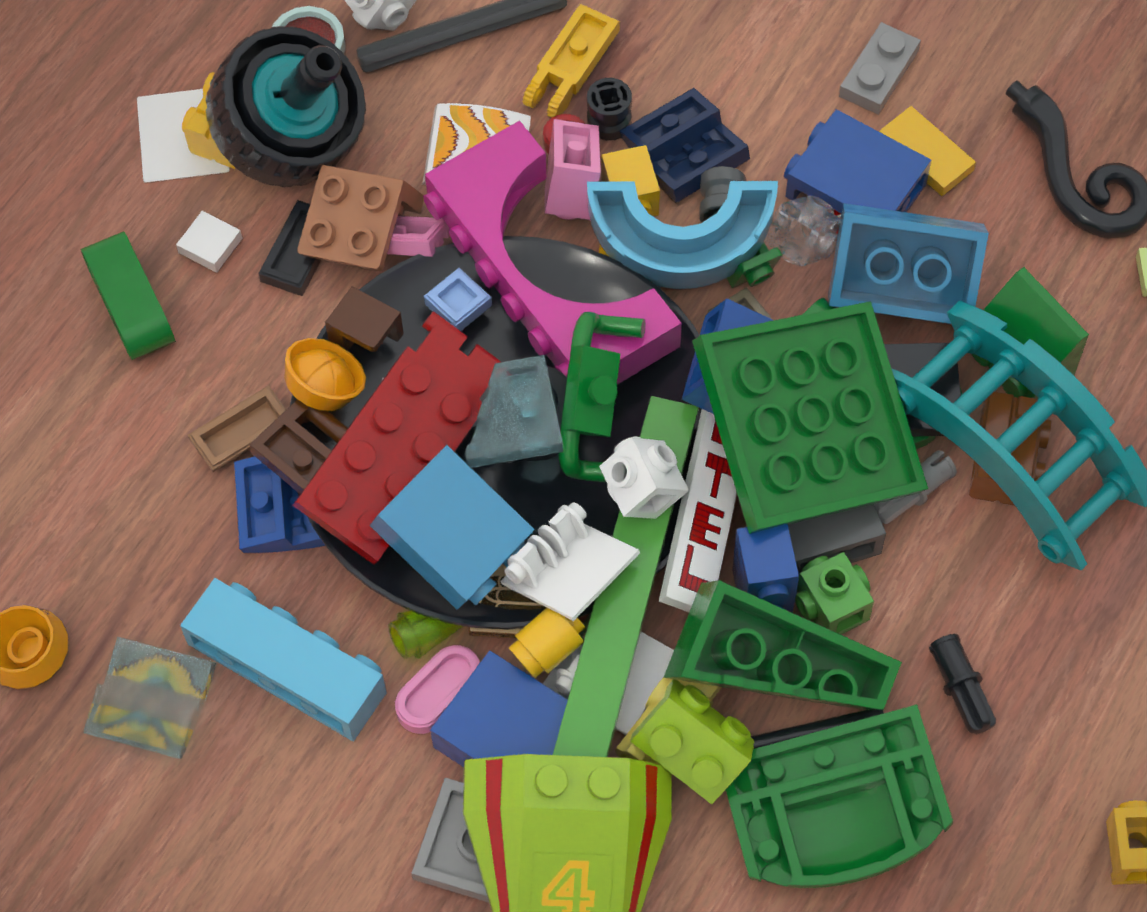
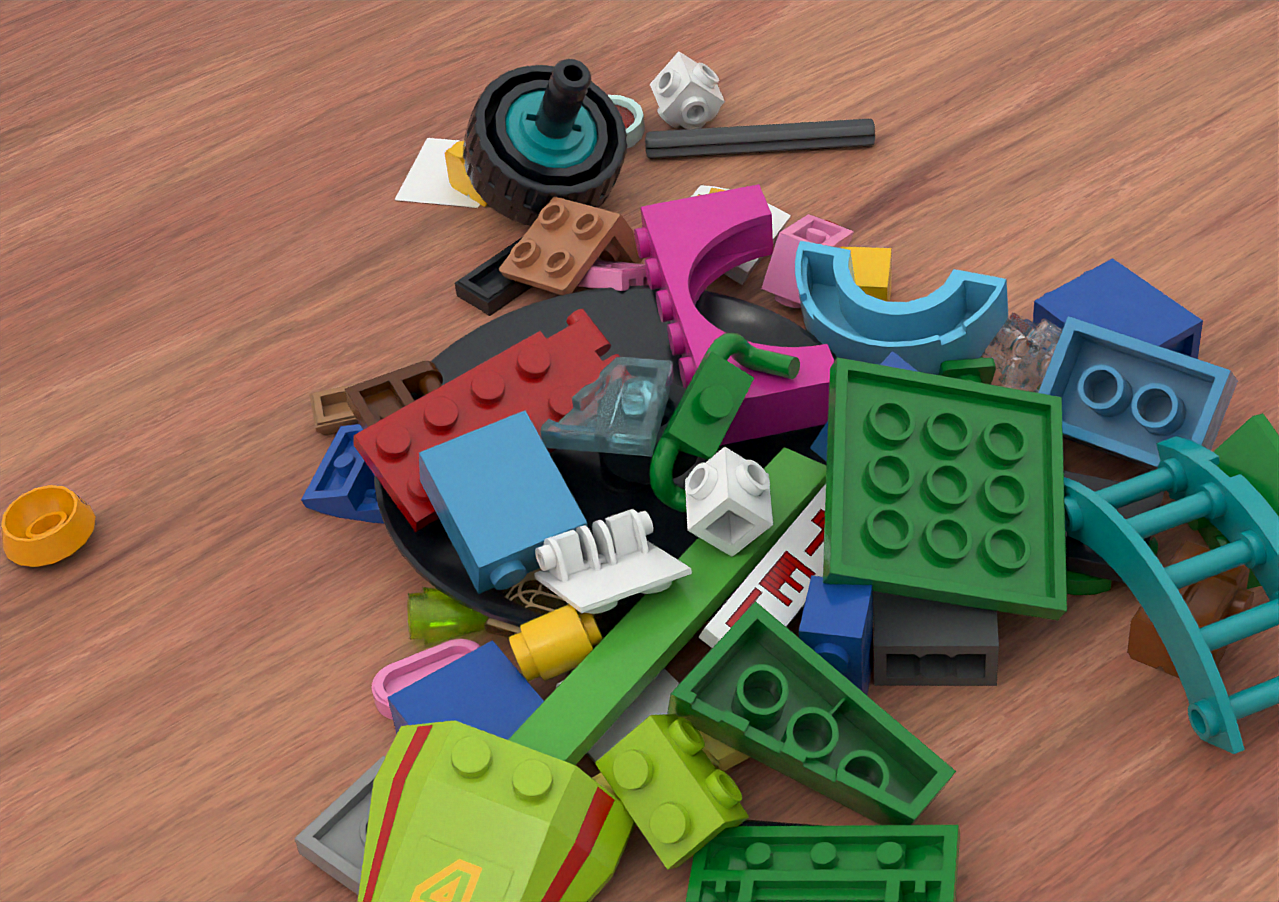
camera: 25 degrees right, 20 degrees down
(128, 295) = (321, 273): green beam -> none
(150, 698) = (137, 606): clear light blue slope -> none
(209, 241) = (425, 251): white tile -> none
(285, 658) = (287, 604): medium azure brick -> none
(323, 374) = (447, 345): light orange hat -> none
(363, 321) = (511, 313): reddish brown panel -> none
(458, 299) = (628, 327): light blue tile -> none
(571, 58) = (854, 180): yellow hinge -> none
(609, 107) = (873, 218): black wheel -> none
(685, 142) = (926, 261): dark blue slope -> none
(834, 593) = (916, 692): bright green brick -> none
(879, 68) = (1184, 250): light grey plate -> none
(935, 474) = (1083, 617): light grey axle -> none
(948, 161) = (1223, 337): yellow tile -> none
(962, 683) = (1036, 836): black axle -> none

